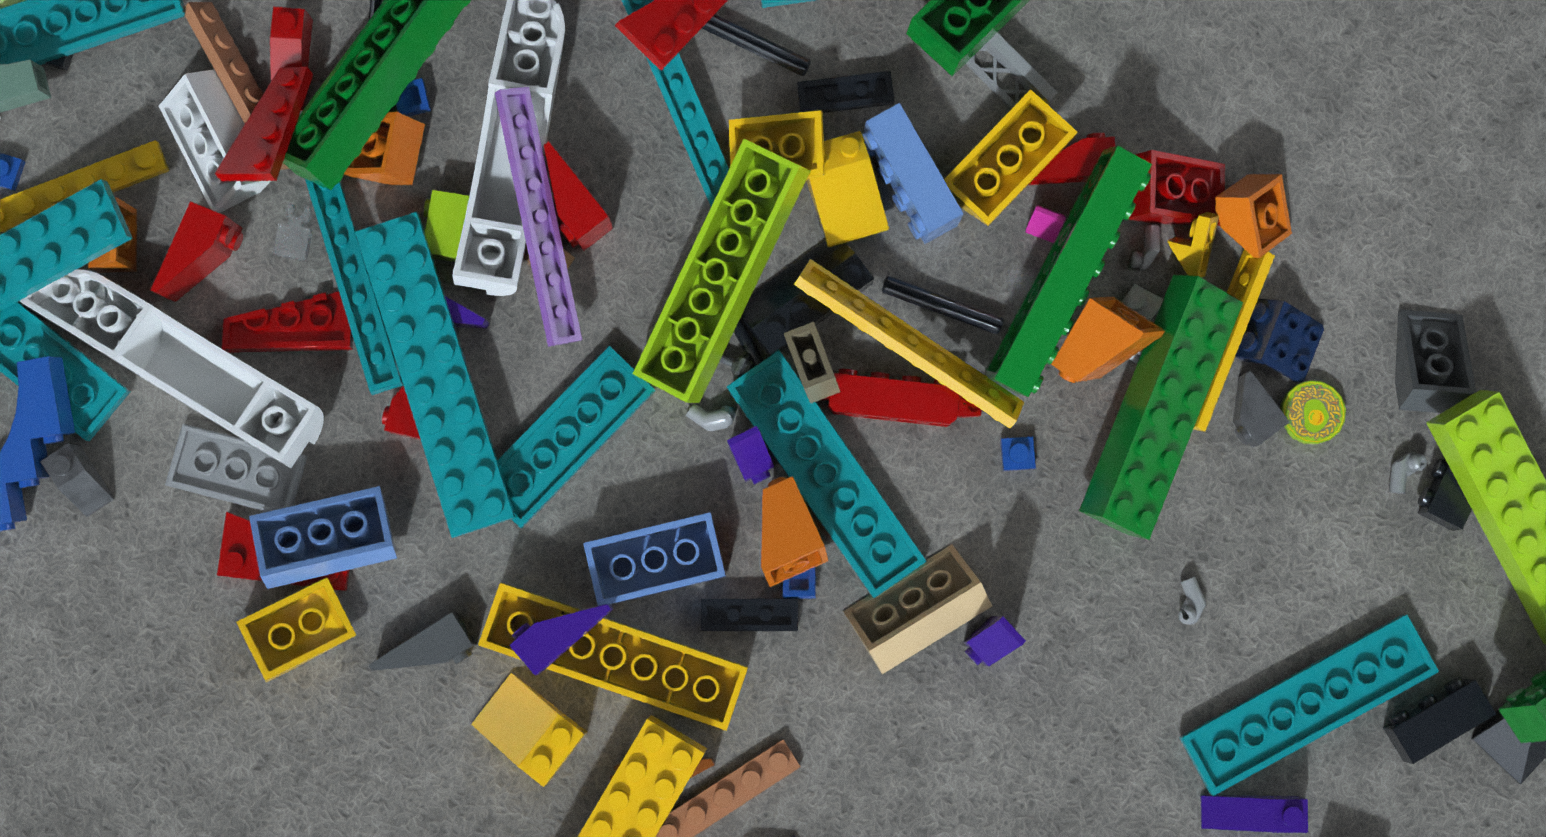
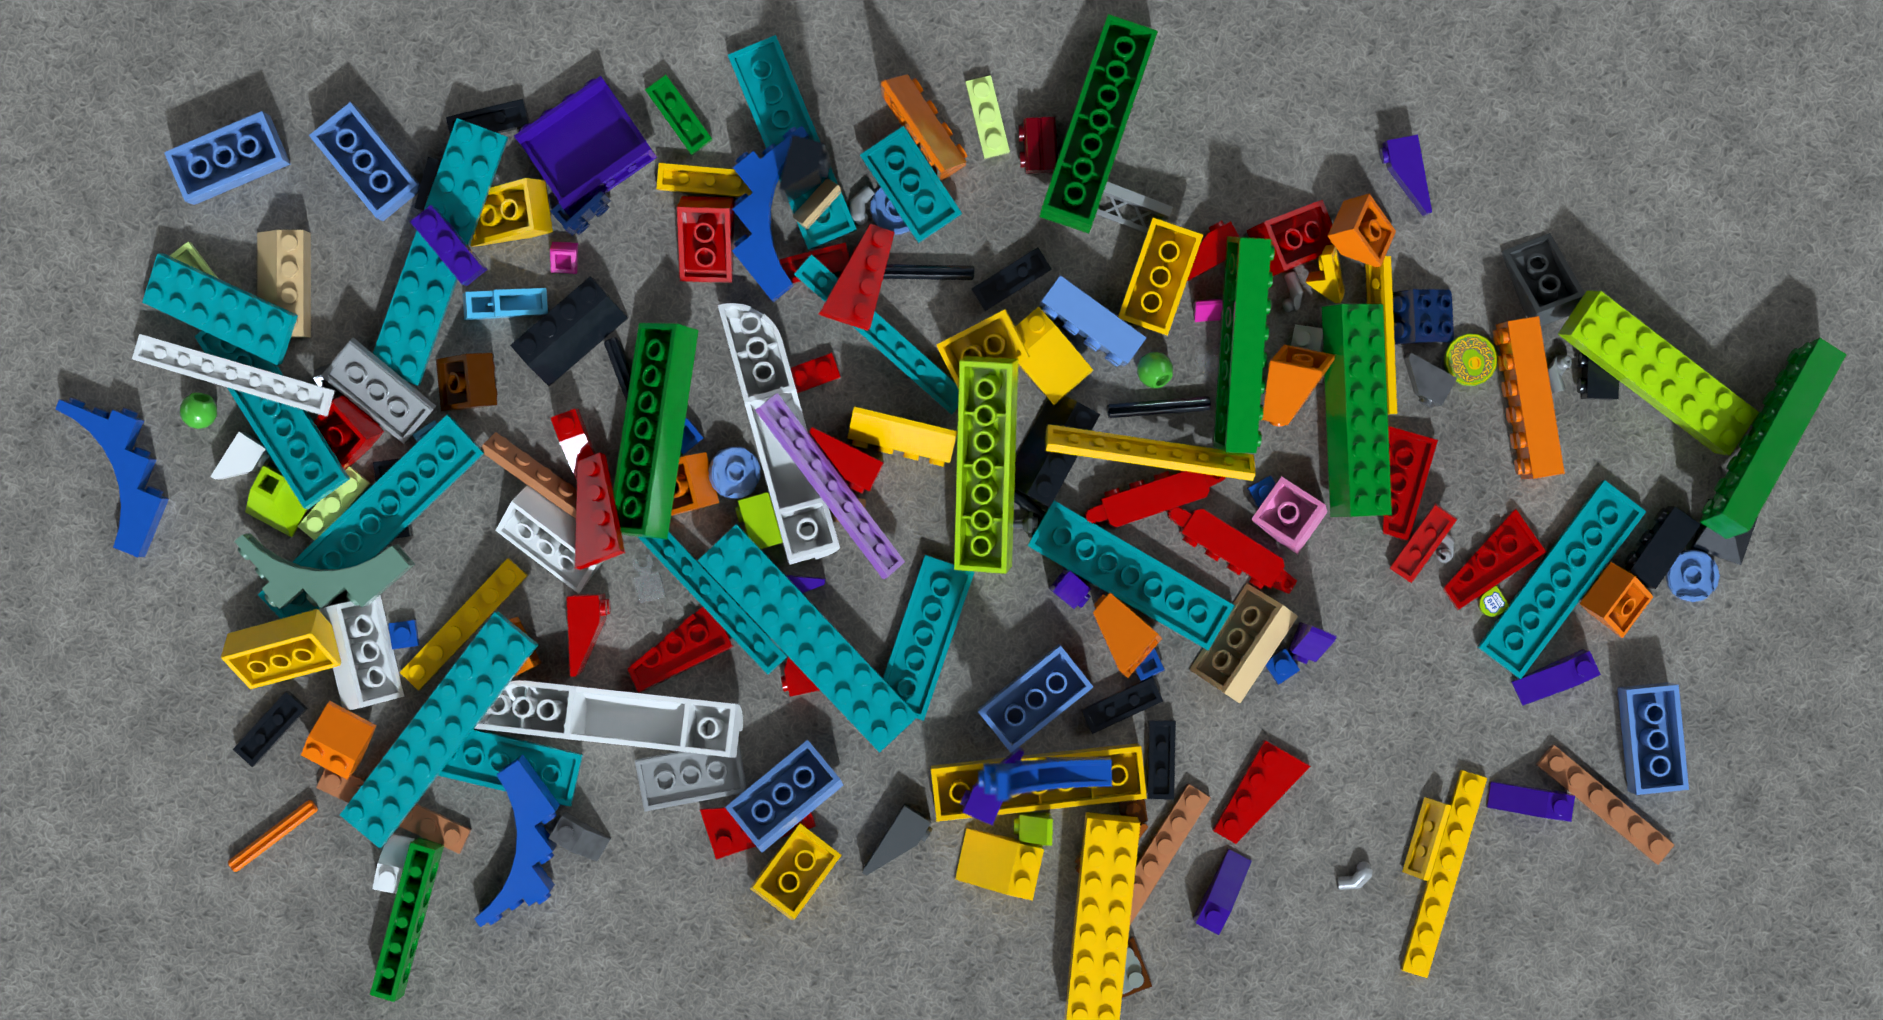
camera: 25 degrees left, 5 degrees up
(444, 160) = (734, 472): none -> medium blue tile
(583, 96) = (815, 373): none -> red plate
(585, 706) = (1034, 827): none -> lime slope
(599, 635) = (1036, 775): none -> blue arch
(644, 201) = (902, 435): none -> yellow slope
(709, 737) = (1134, 808): none -> reddish brown plate
(712, 420) = (1028, 573): light grey arm -> none
(765, 697) = (1161, 759): none -> black plate
(811, 362) = (1084, 500): dark tan brick -> none
(866, 780) = (1262, 785): none -> red wing
(948, 655) = (1282, 666): none -> blue plate
(954, 496) = (1234, 548): none -> red hinge
(957, 260) = (1155, 369): none -> bright green piece
(1034, 489) = (1290, 515): none -> bright pink slope
(1170, 589) = (1423, 543): none -> red plate
(1192, 498) = (1409, 467): none -> red wing
(1218, 694) = (1492, 602): none -> tile
(1250, 647) = (1498, 558): none -> red wing
(1334, 170) = (1406, 166): none -> dark purple slope
(1361, 481) = (1529, 398): none -> orange brick
(1362, 756) = (1616, 599): none -> orange slope
(1453, 763) = (1686, 572): none -> medium blue tile

